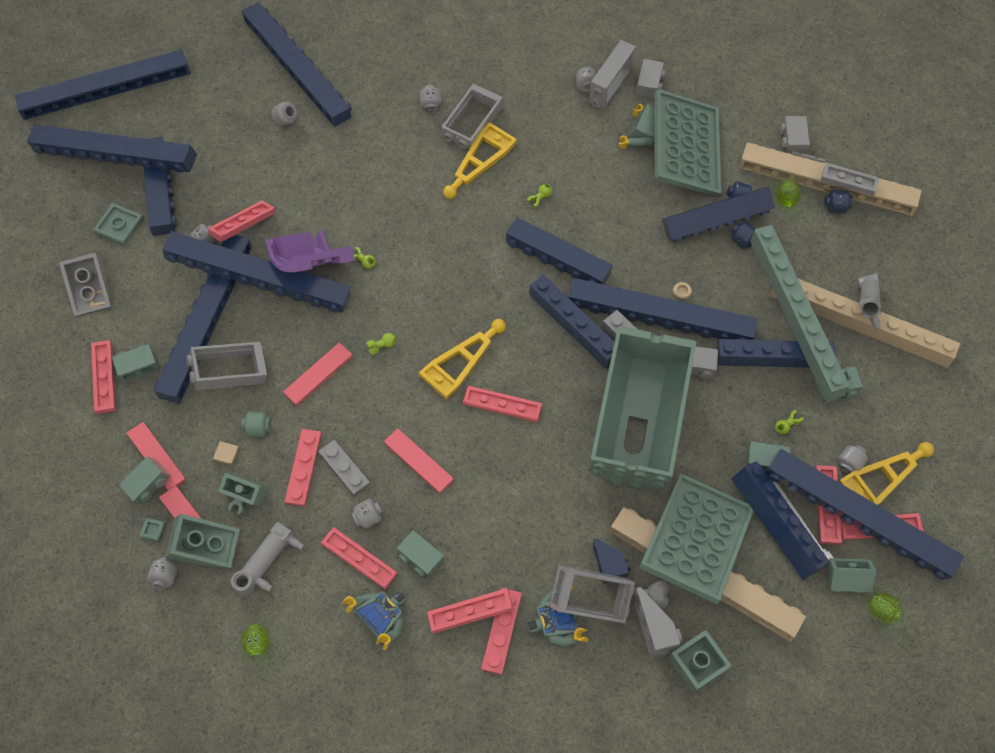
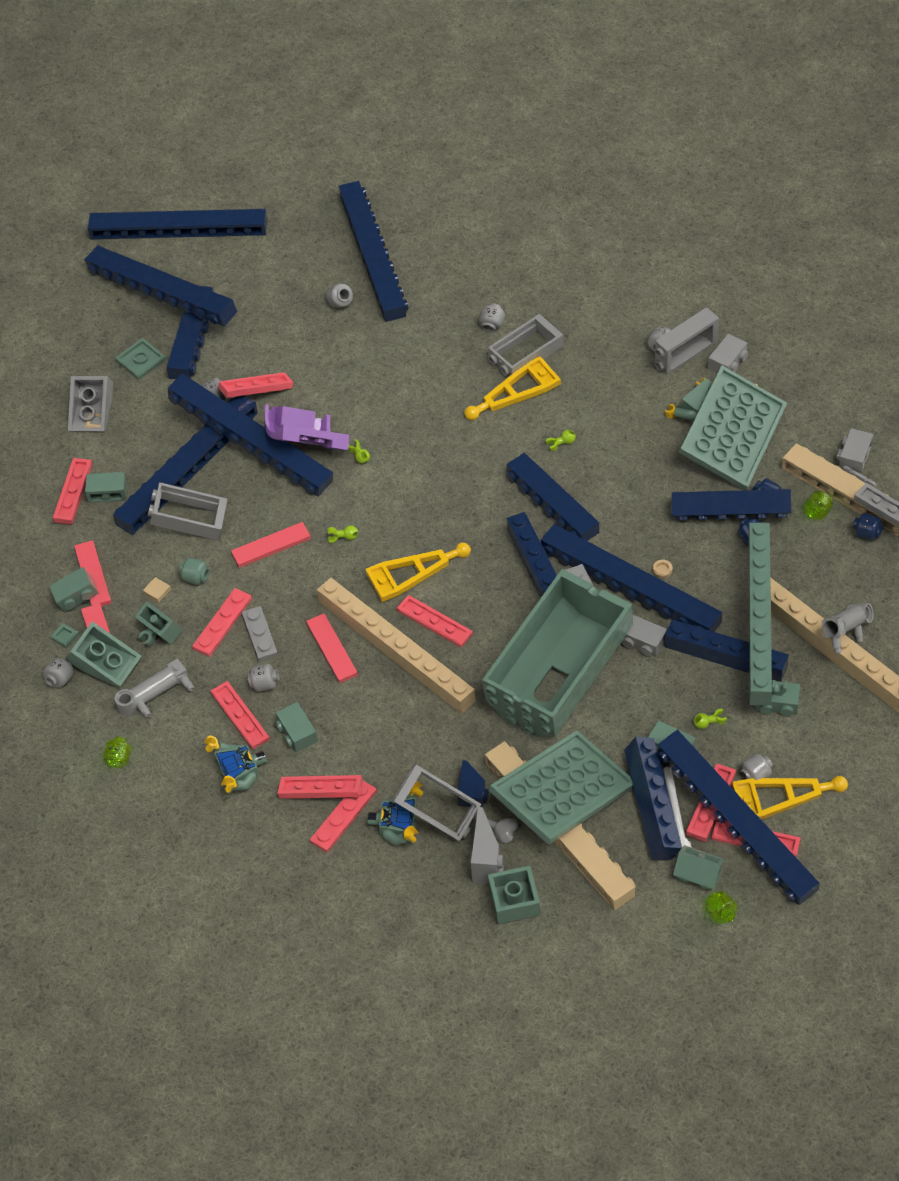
camera: 25 degrees right, 10 degrees down
(479, 440) = (396, 645): none -> tan brick

